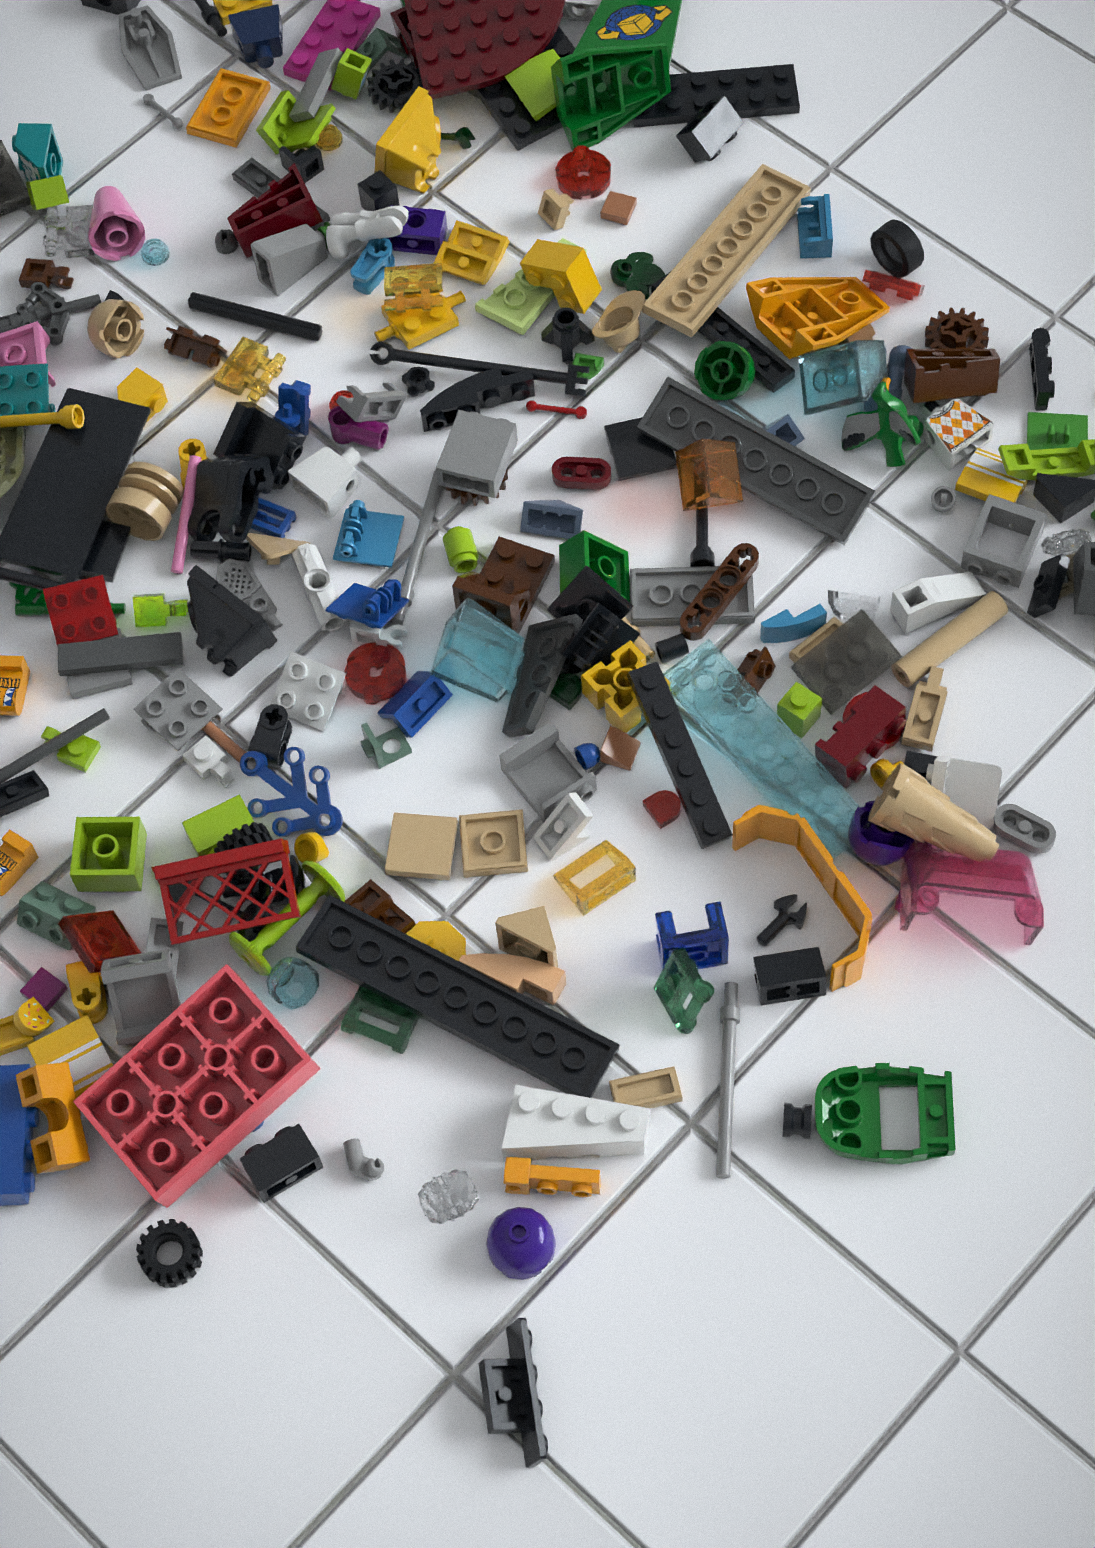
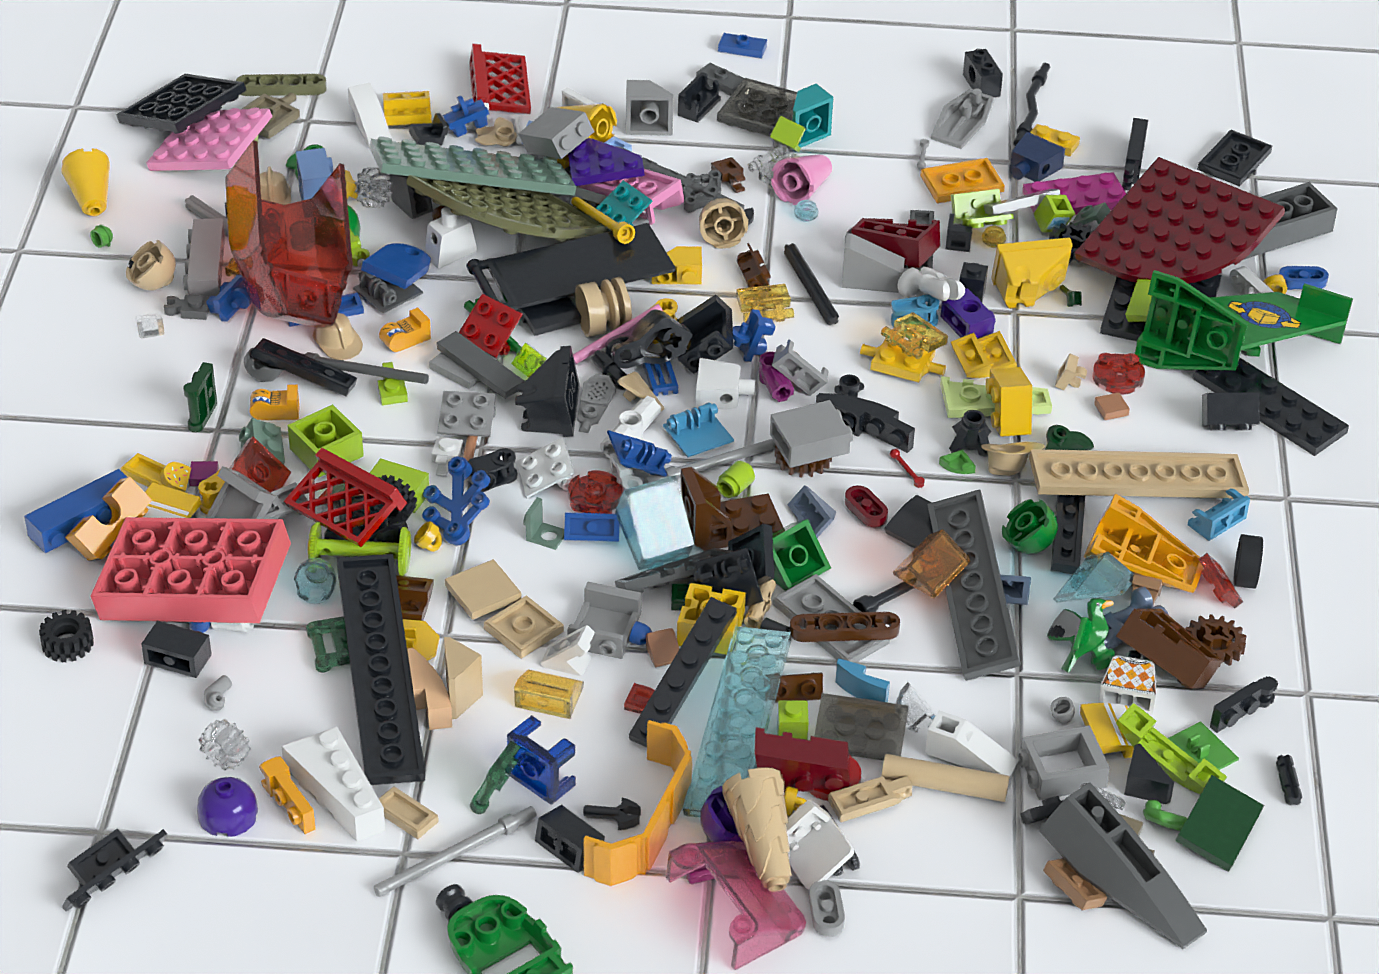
camera: 45 degrees right, 20 degrees down
(569, 378) = (935, 456): black hinge -> none

